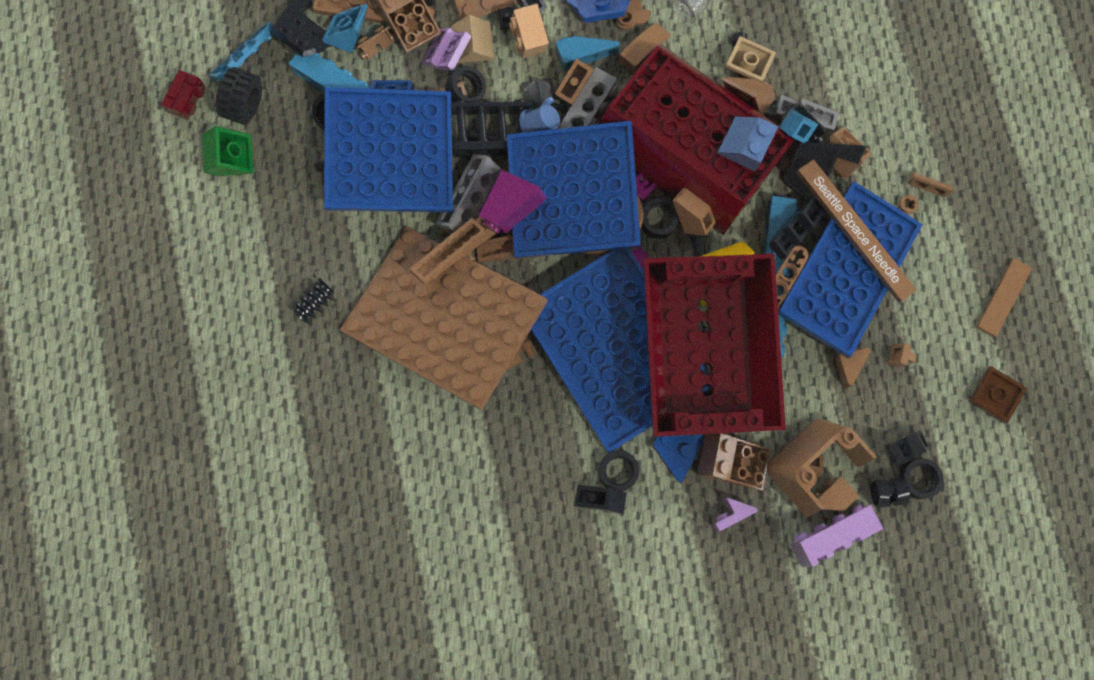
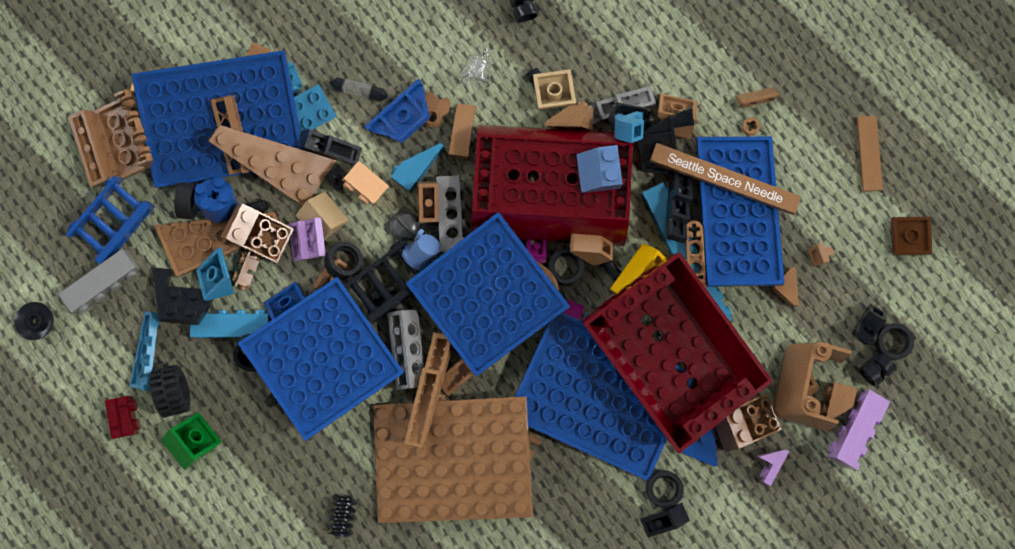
camera: 25 degrees left, 5 degrees up
(510, 202) = (446, 340): magenta slope -> none

